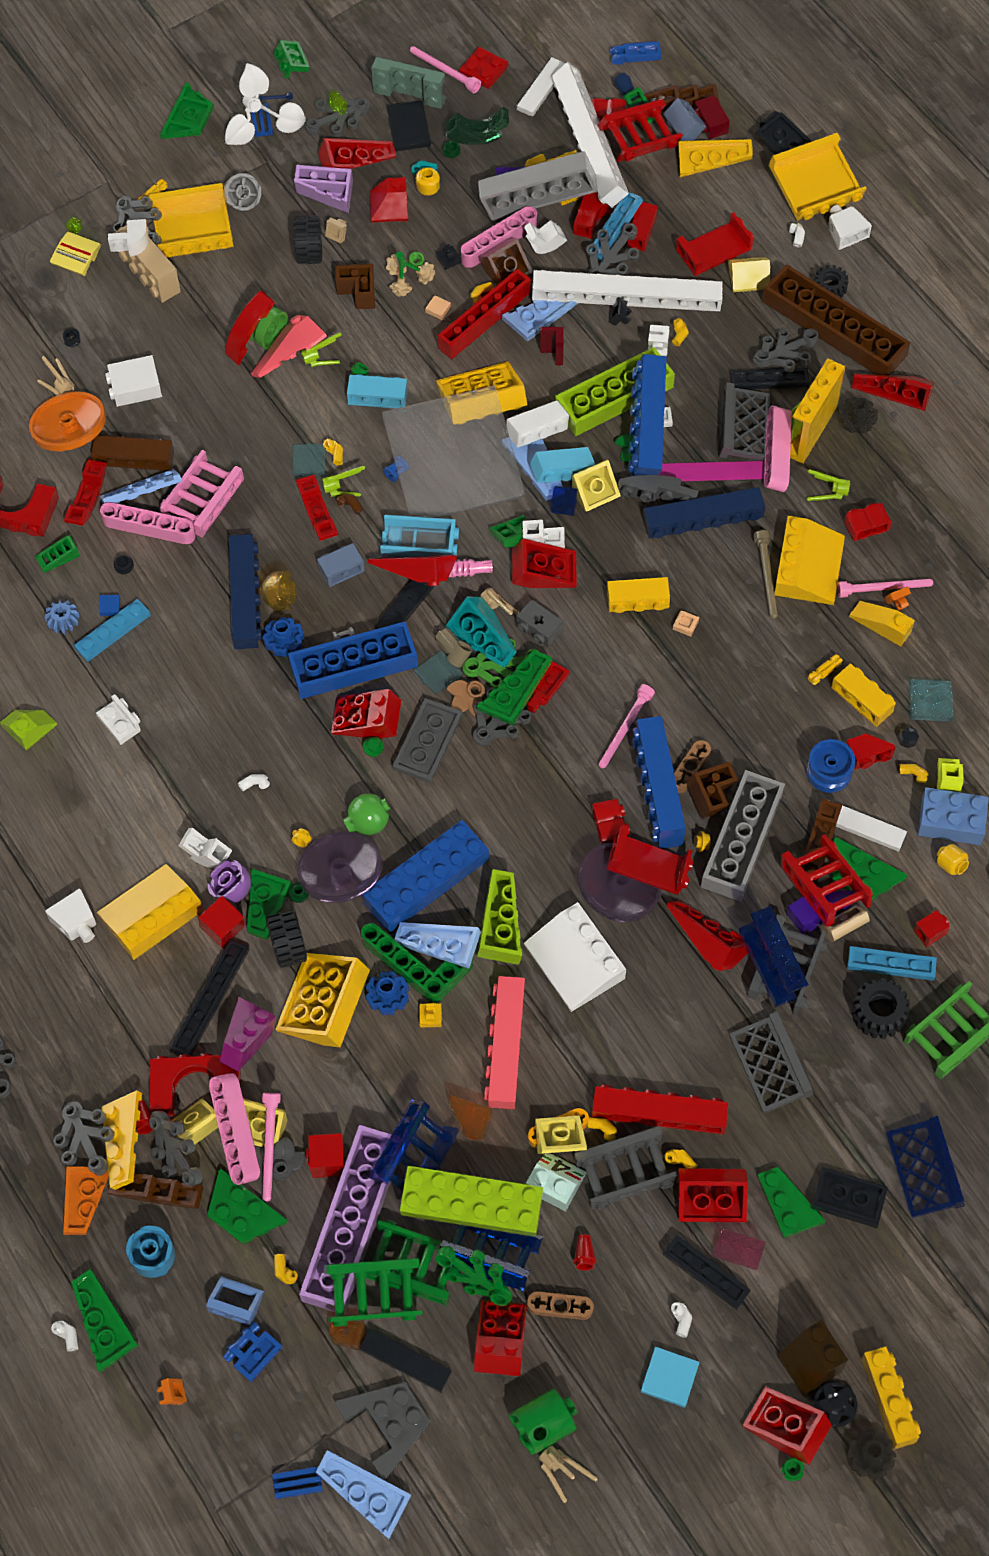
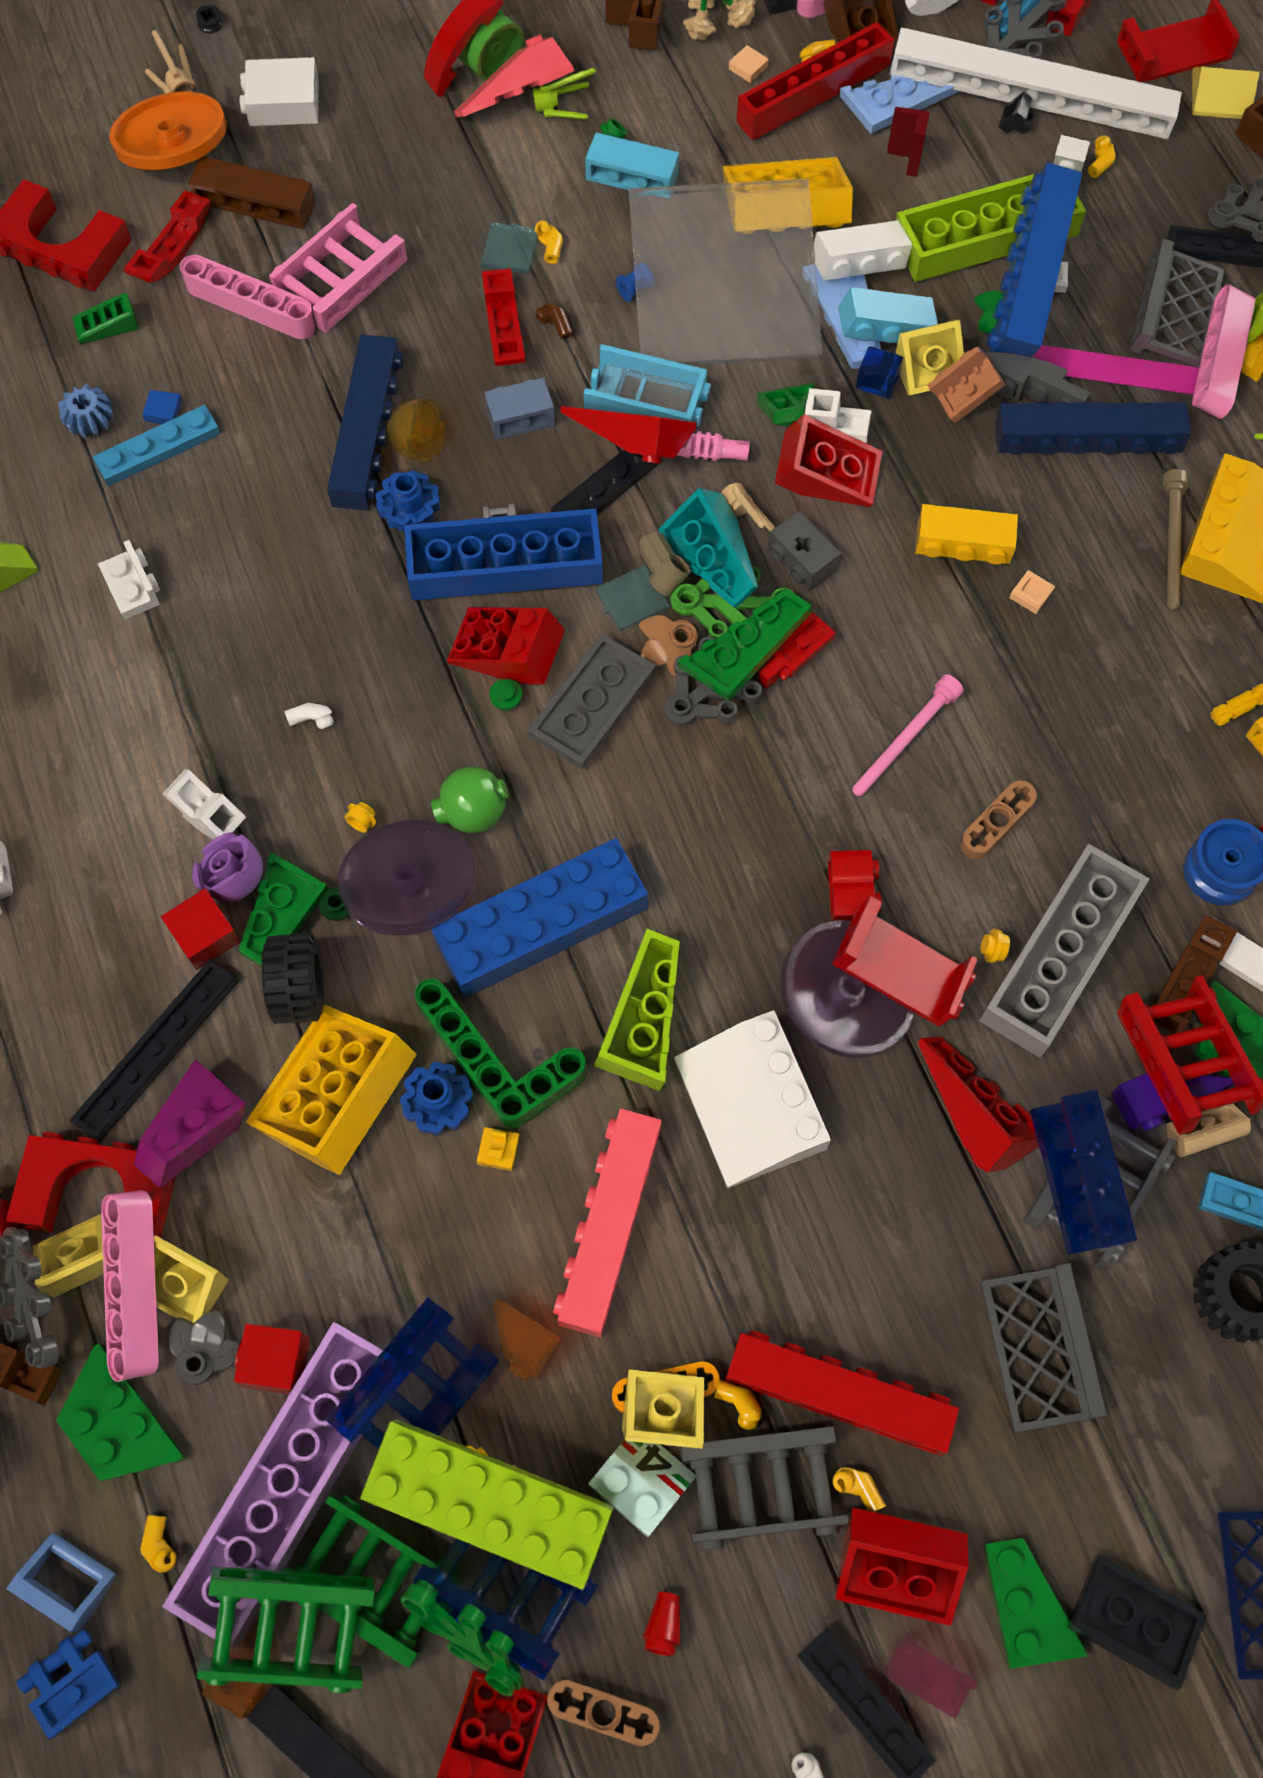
camera: 10 degrees right, 5 degrees up
(123, 564) = (198, 351): black plate -> none
(144, 486) = (262, 243): light blue wing -> none
(150, 911) = (97, 890): yellow slope -> none
(271, 1102) = (196, 1253): bright pink piece -> none
(332, 483) = (535, 285): lime plant -> none
(443, 942) = (542, 1033): light blue wing -> none
(620, 499) = (966, 383): none -> nougat bracket
(659, 783) = (945, 838): blue brick -> none
(708, 787) = (1020, 862): reddish brown brick -> none

